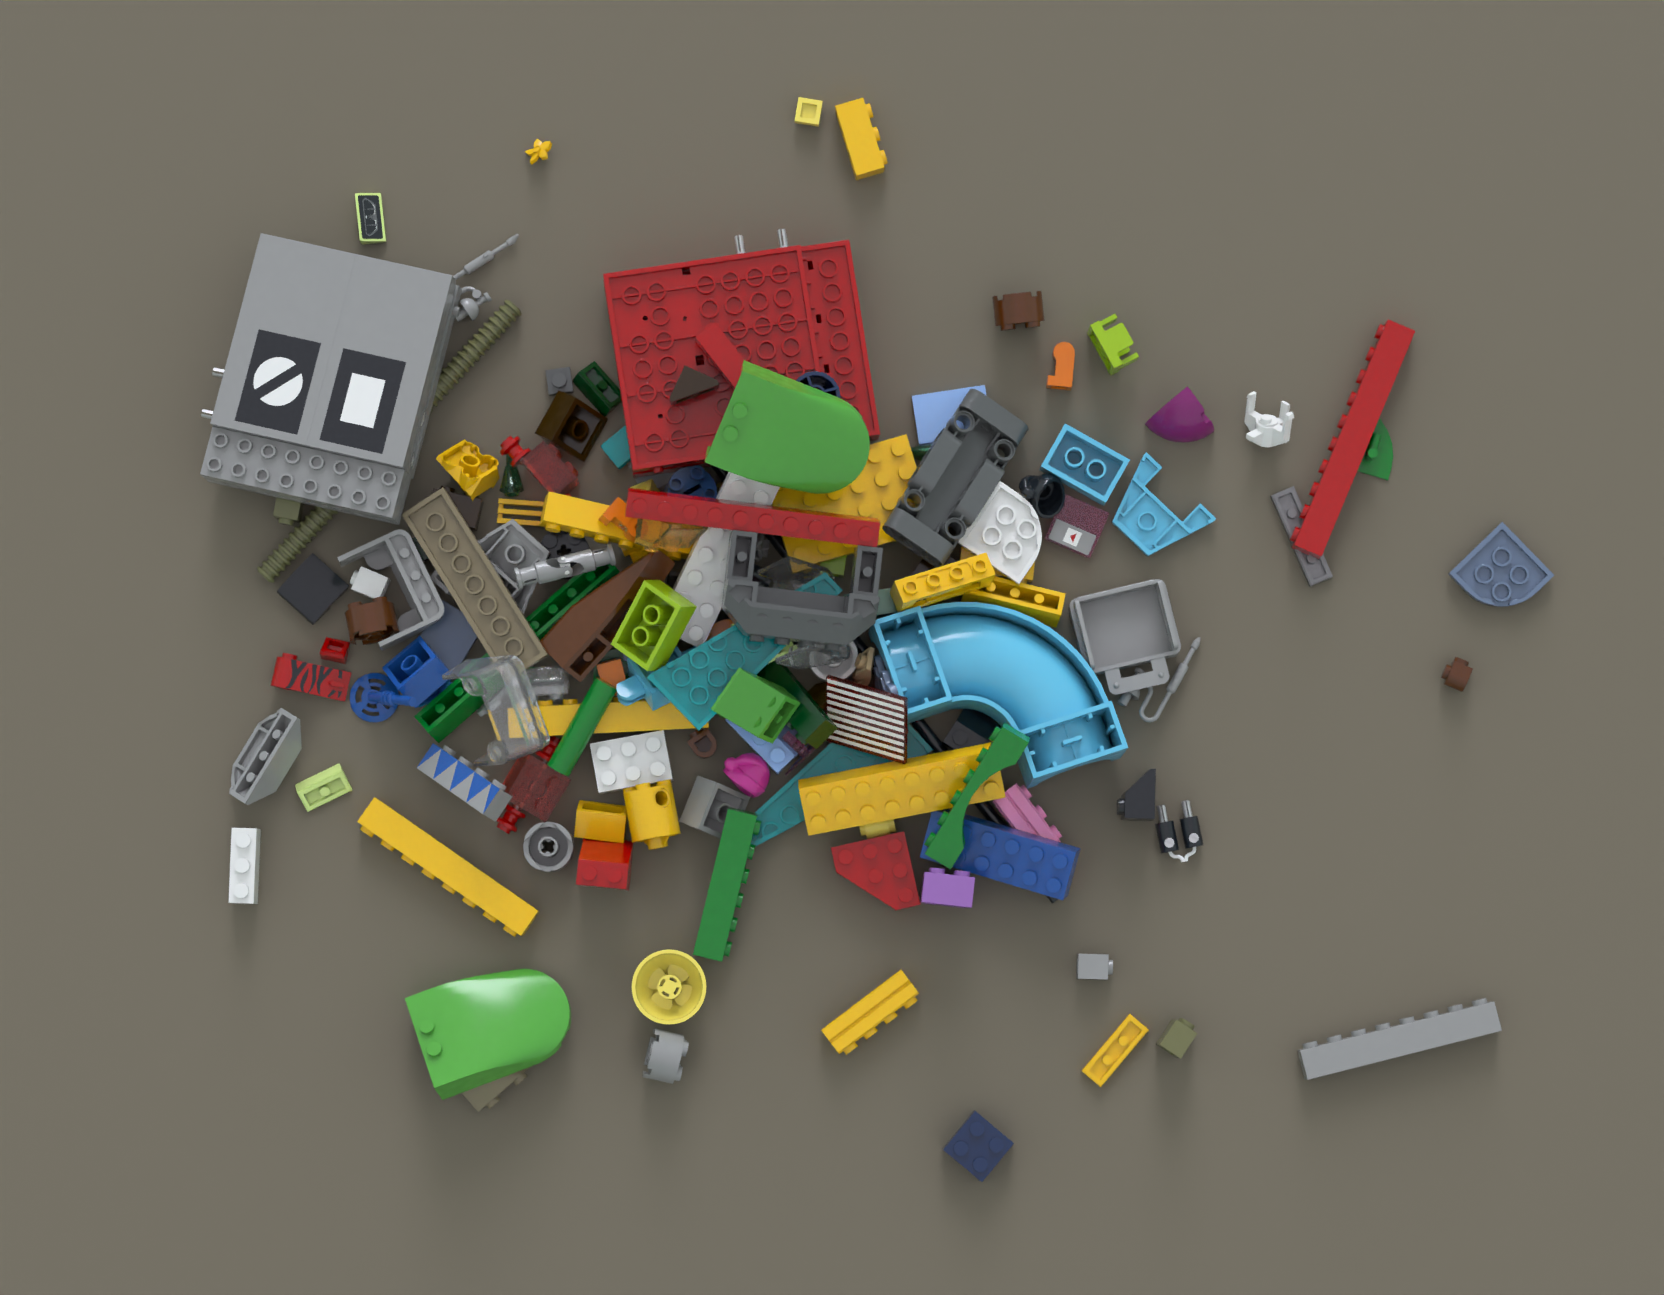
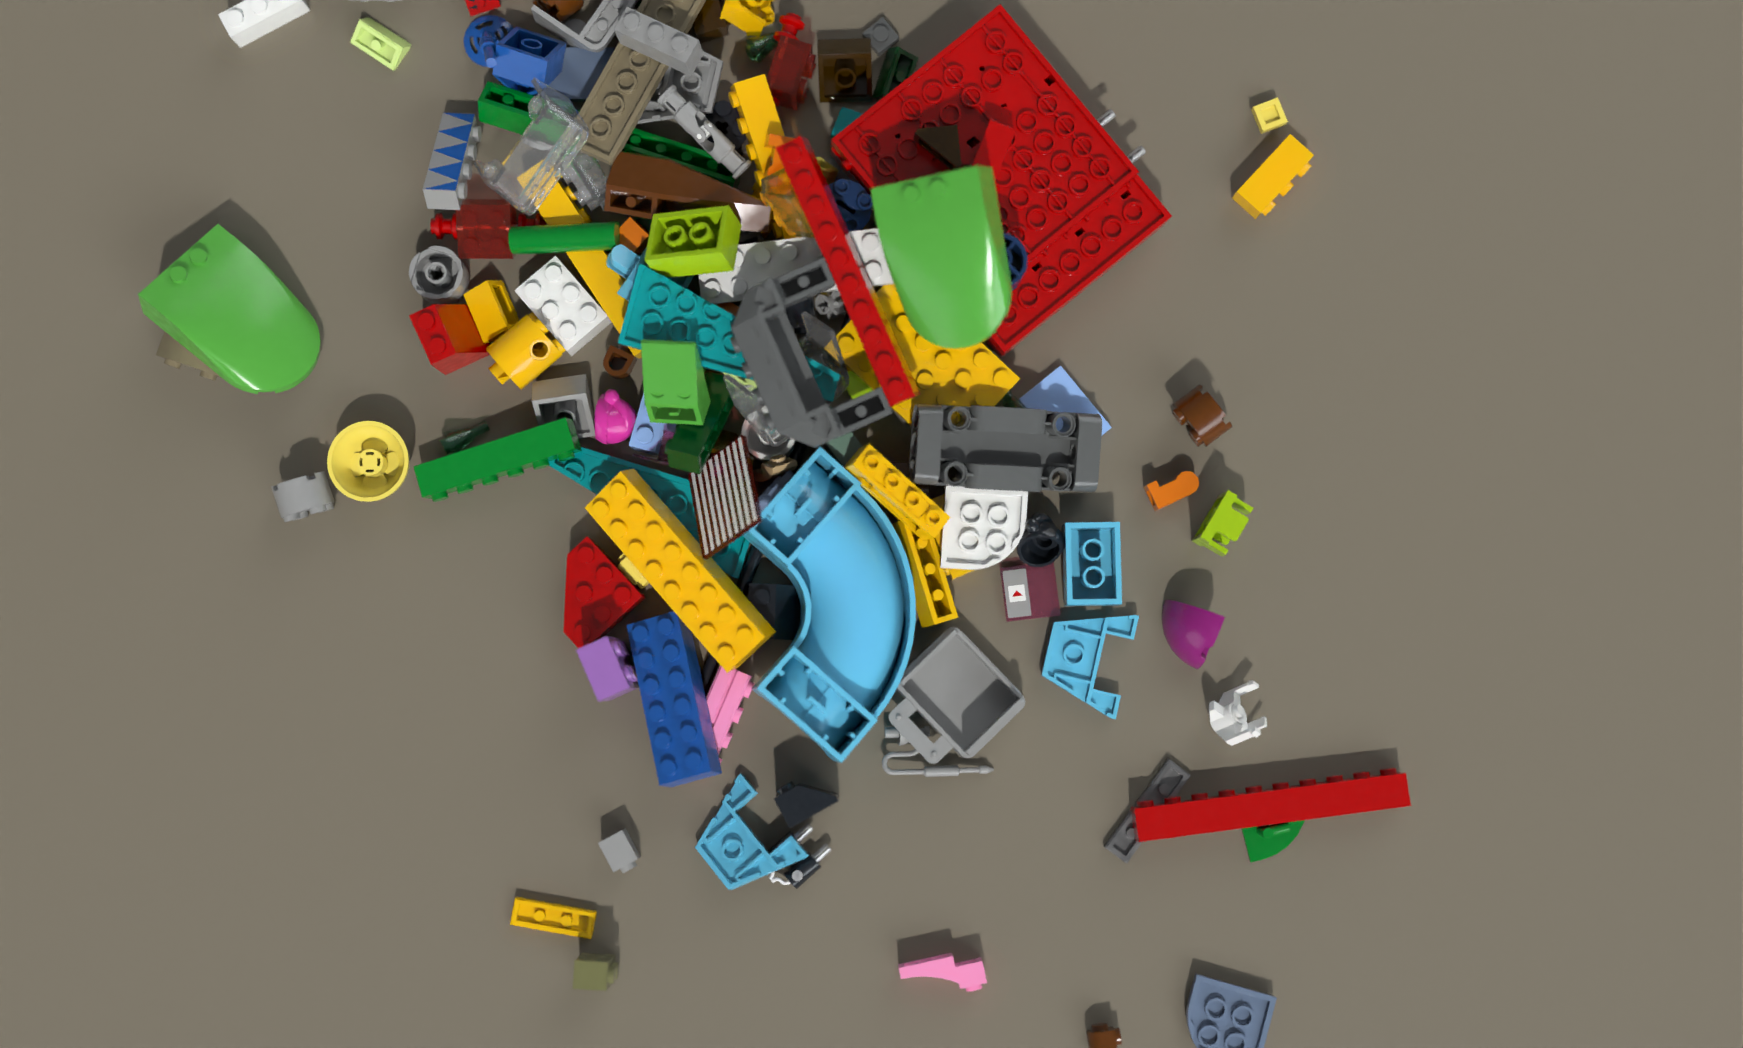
camera: 60 degrees right, 0 degrees up
(447, 866) = (369, 196): yellow brick -> none
(473, 559) = (659, 41): none -> light grey brick
(500, 520) = (729, 55): yellow tile -> none
(689, 910) = (458, 439): none -> clear green cone
(870, 1011) = (456, 664): yellow brick -> none
(978, 1146) = (386, 840): dark blue brick -> none
(1003, 752) = (763, 644): green arch -> none
(1143, 875) = (735, 850): none -> medium azure wing
(1346, 750) = (968, 973): none -> bright pink slope

